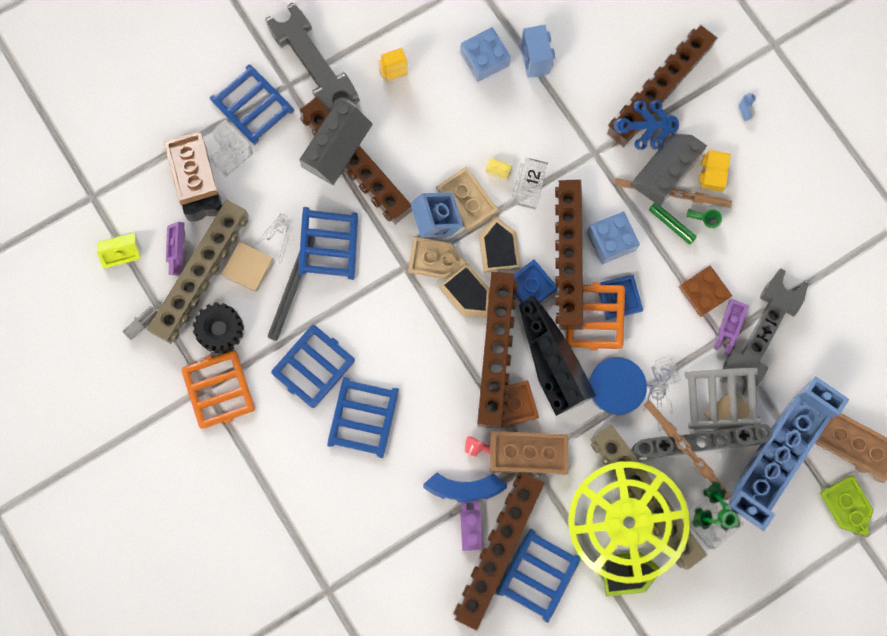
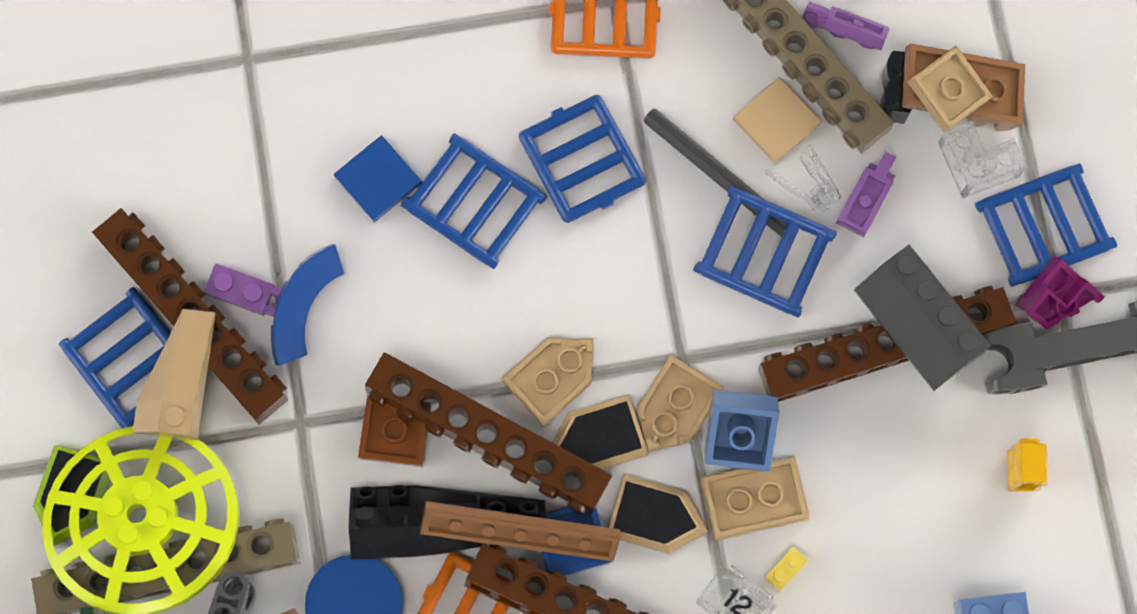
camera: 120 degrees right, 0 degrees up
(197, 171) = (950, 89): none -> tan tile
(213, 314) = (699, 21): black tyre -> none
(273, 200) = (868, 196): none -> medium lavender hinge
(290, 85) = (1057, 294): none -> magenta slope
(372, 478) = (377, 178): none -> blue tile
(446, 331) = (552, 376): none -> tan tile
(474, 446) = (359, 346): coral bar -> none
(528, 453) = (310, 417): medium nougat hinge -> none
(544, 308) = (520, 531): none -> medium nougat tile
(546, 536) = (176, 387): none -> tan wedge

